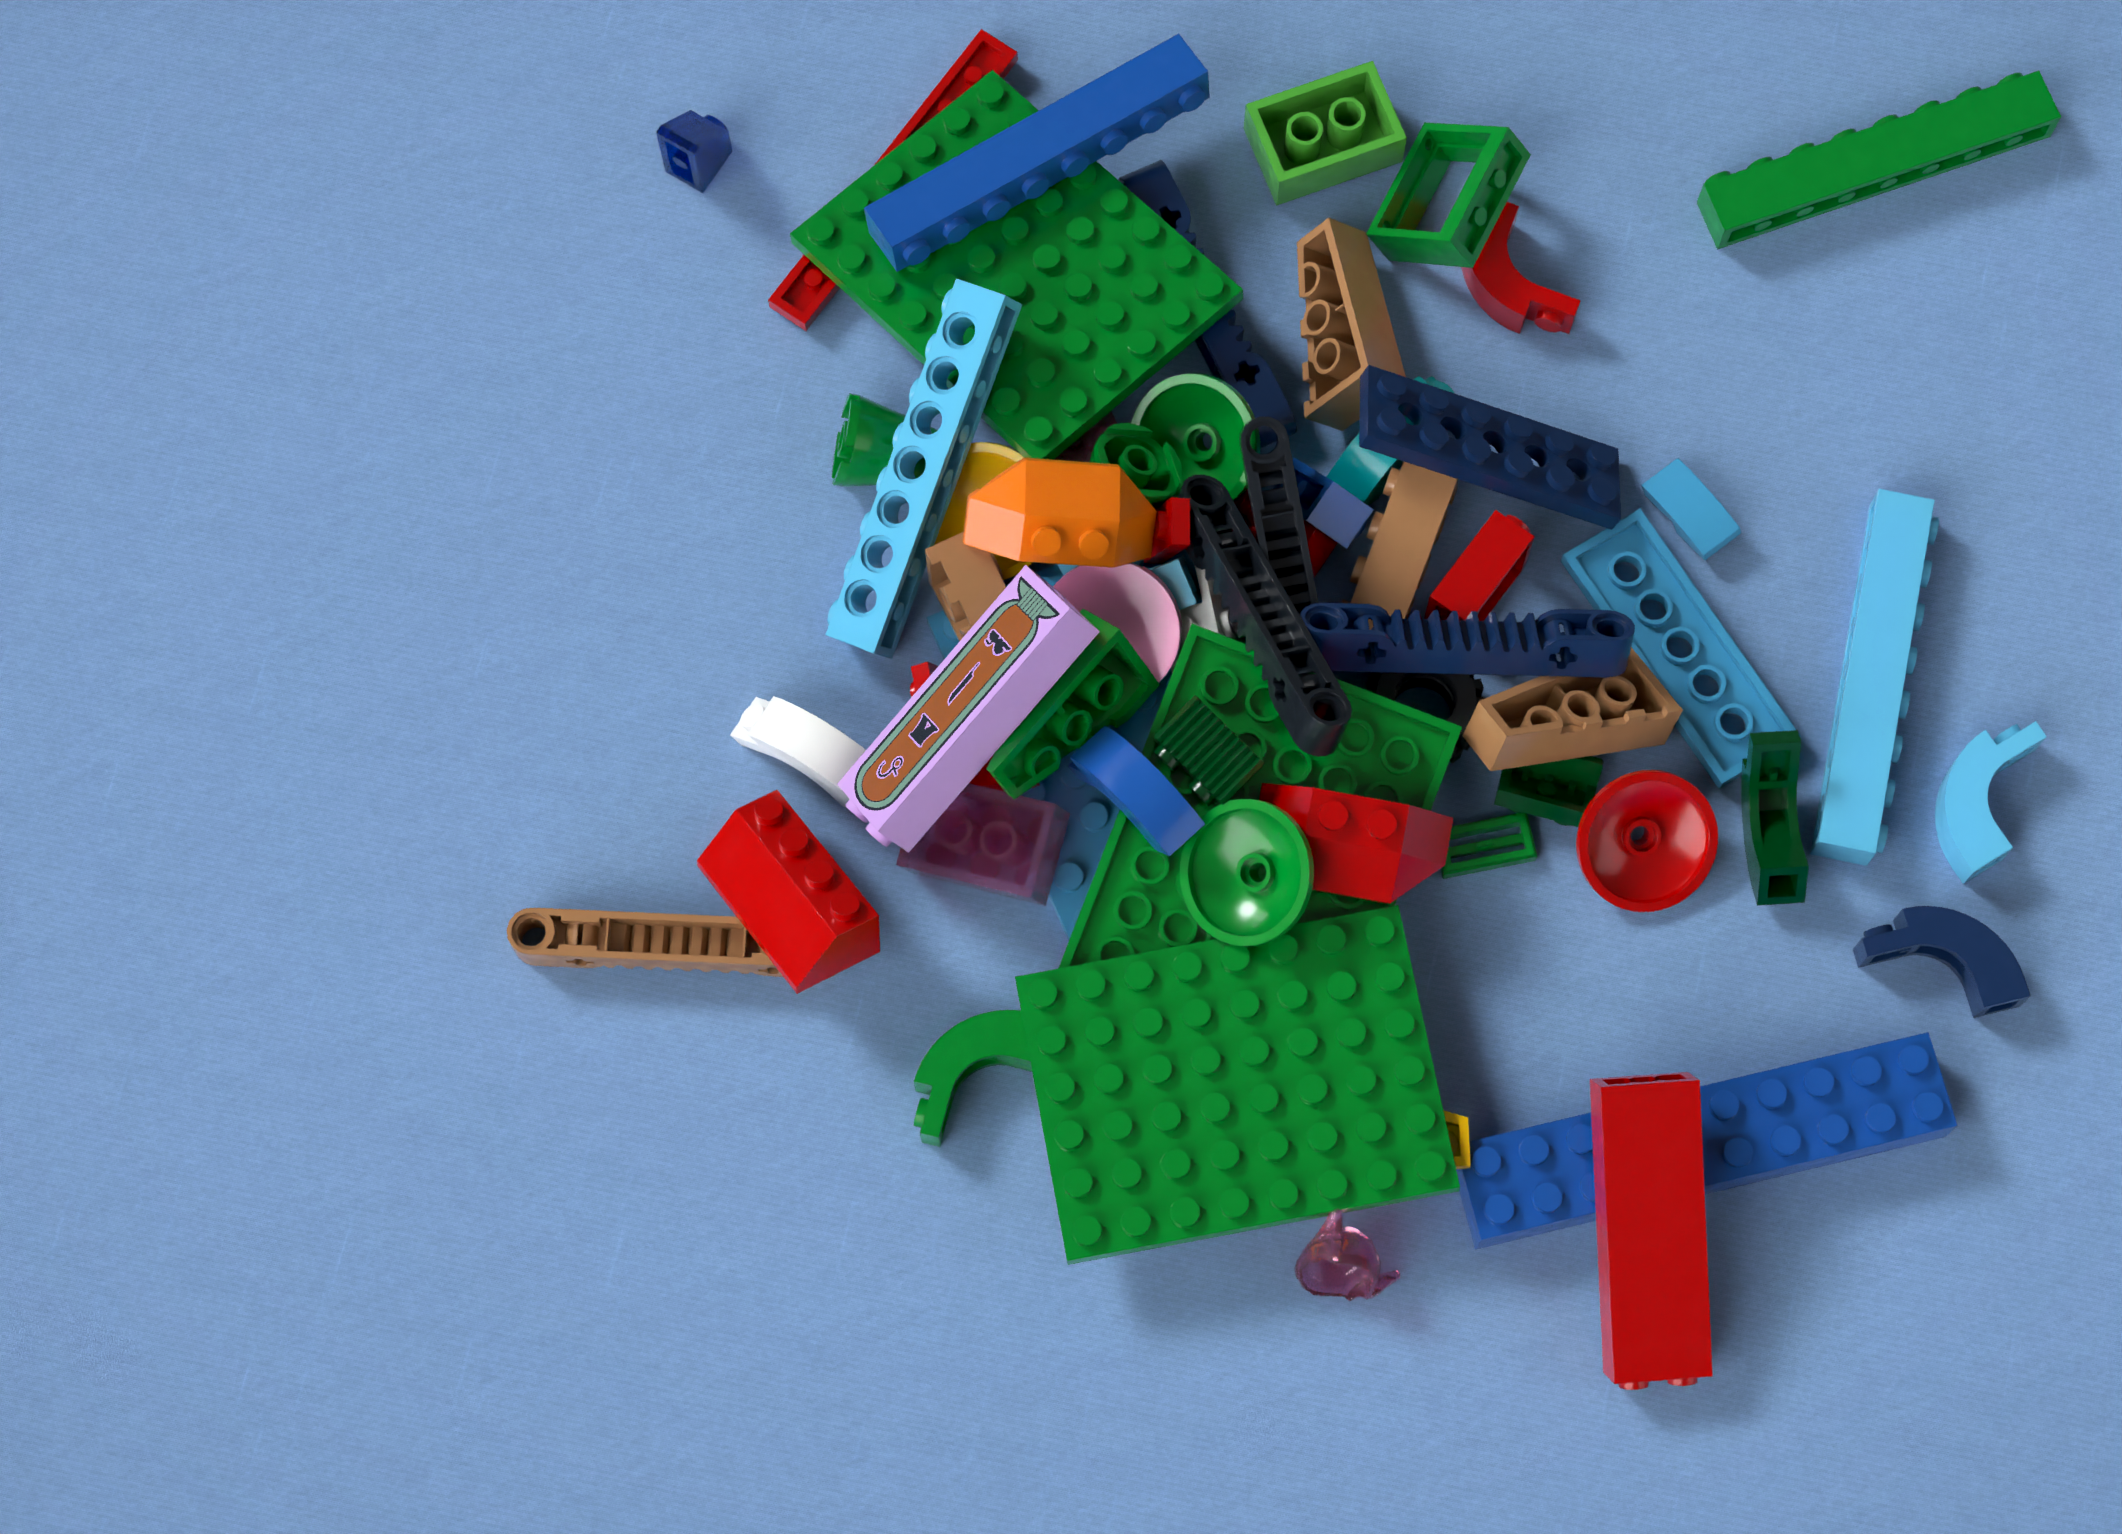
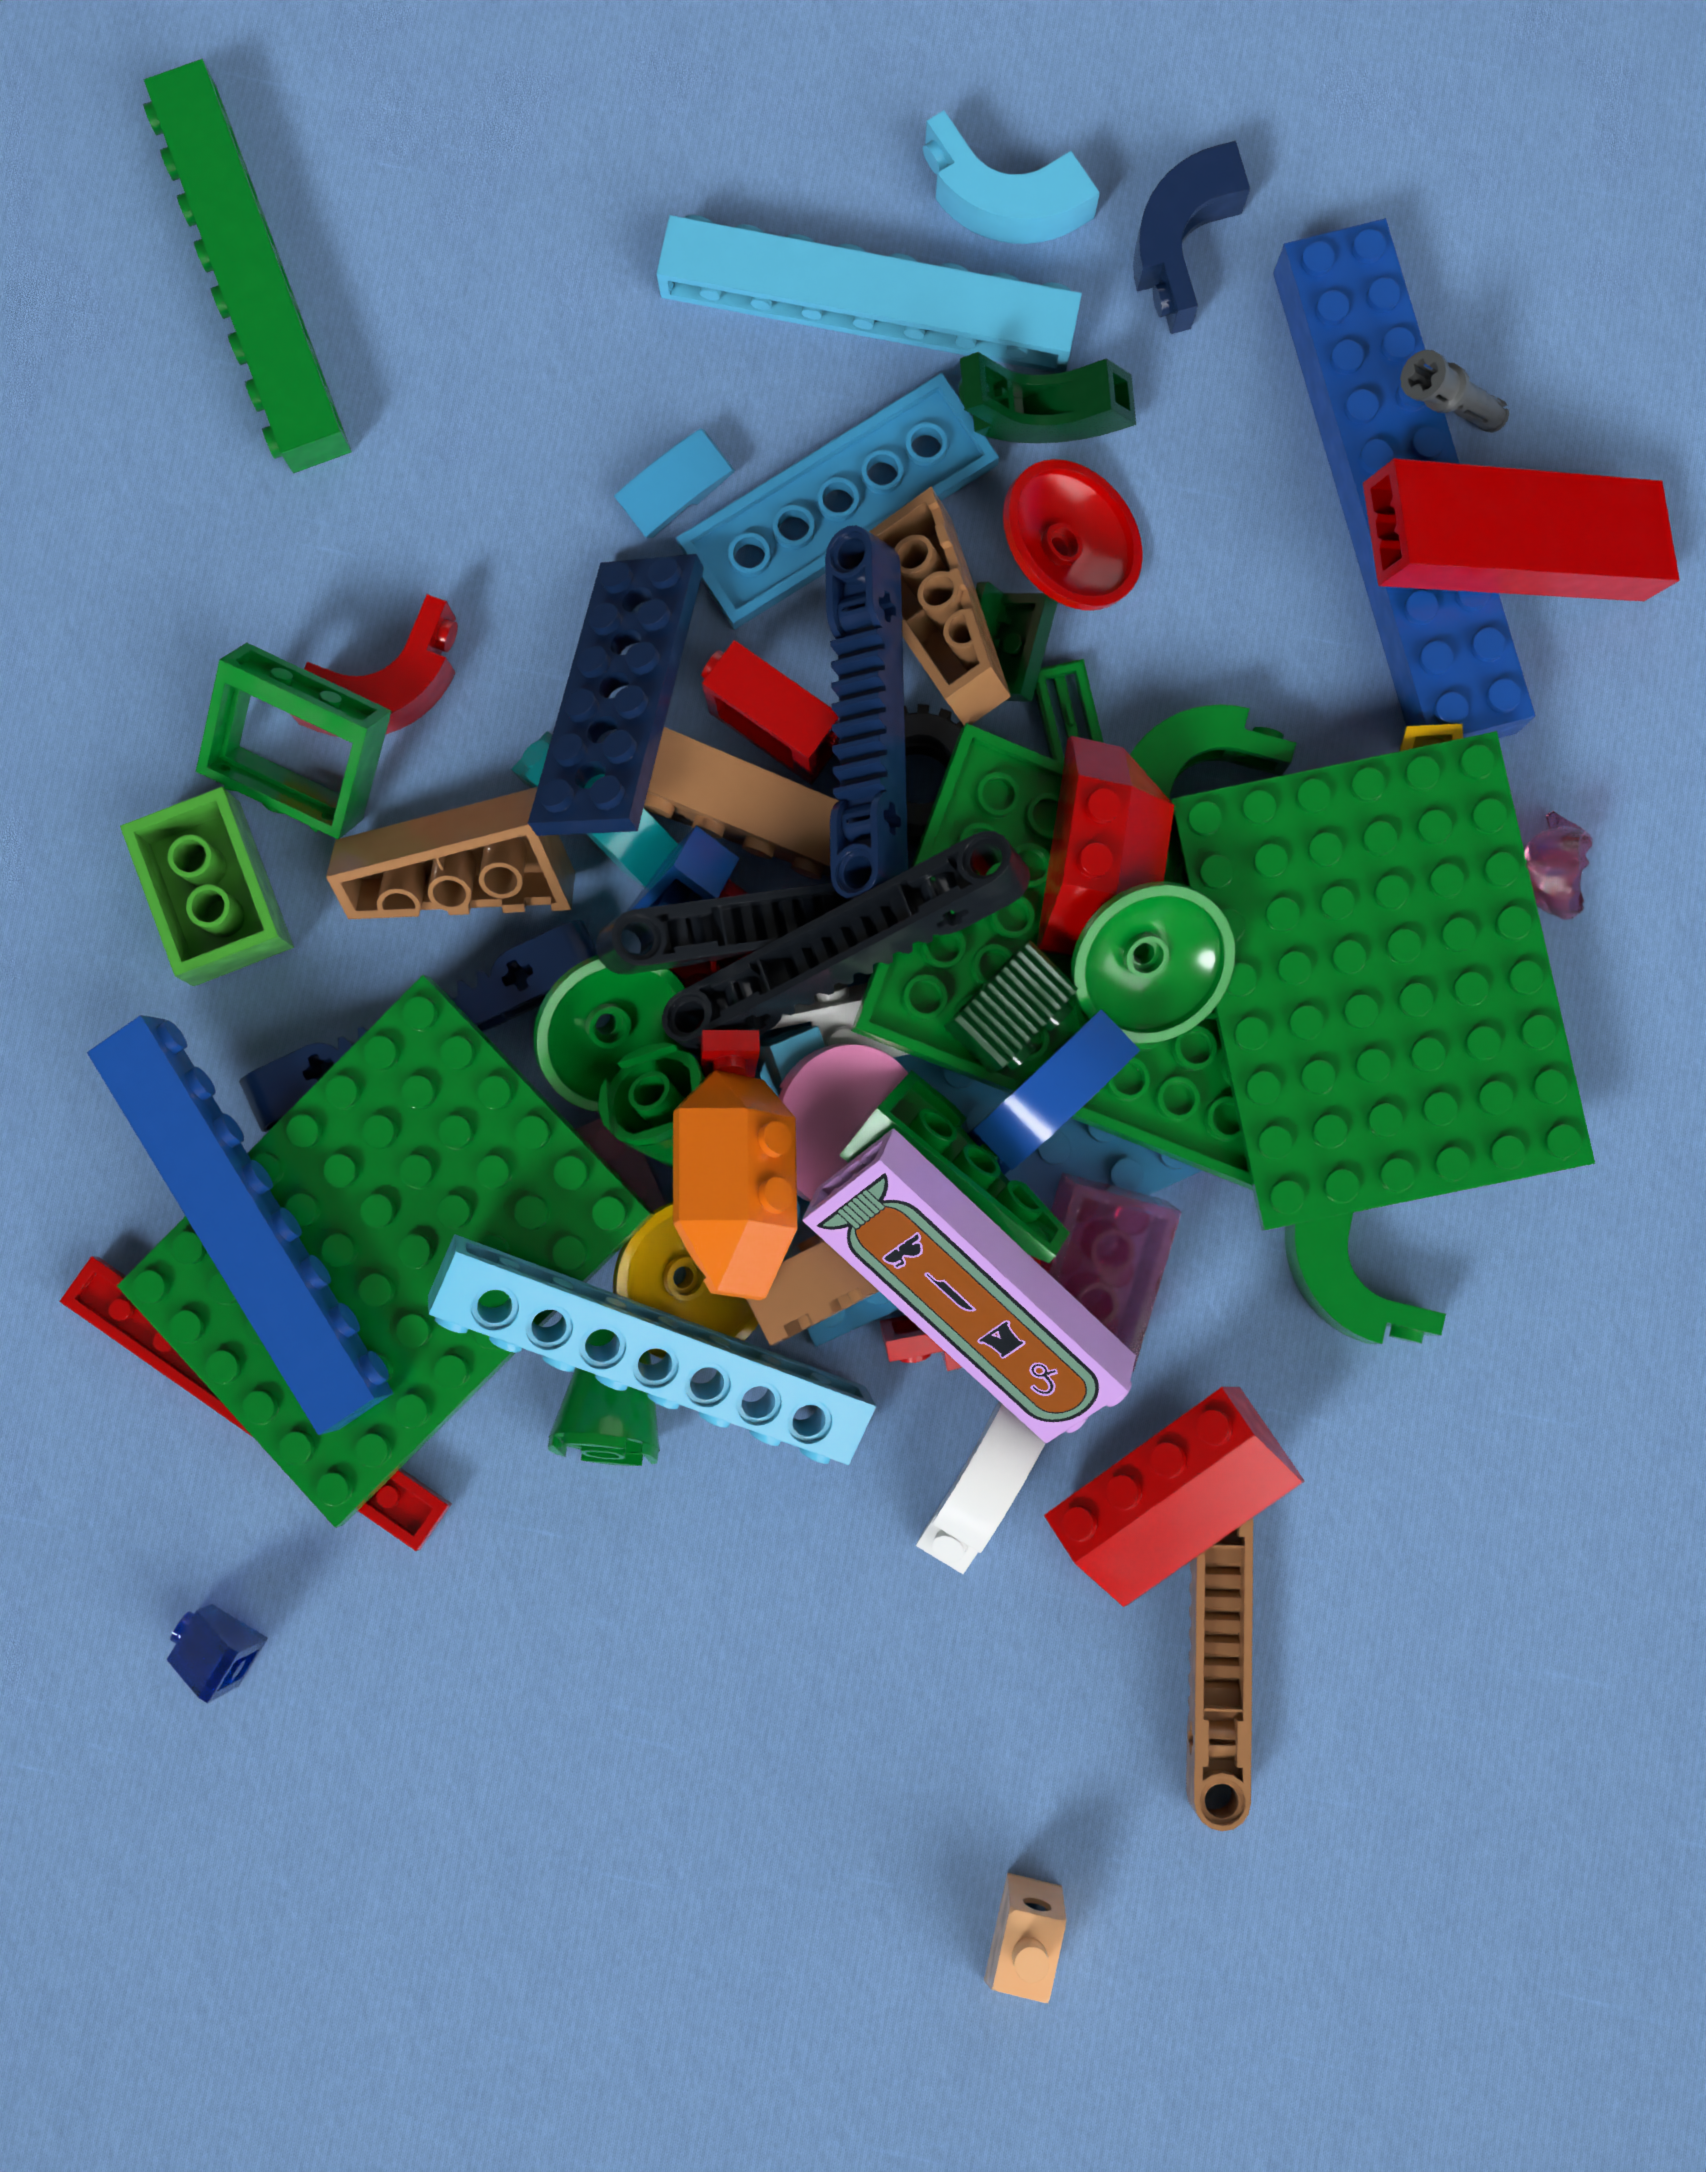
camera: 90 degrees left, 10 degrees up
(423, 772) = (1026, 1939): none -> light nougat torso
(1458, 934) = (1210, 735): none -> green arch
(1785, 1162) = (1449, 389): none -> dark grey pin

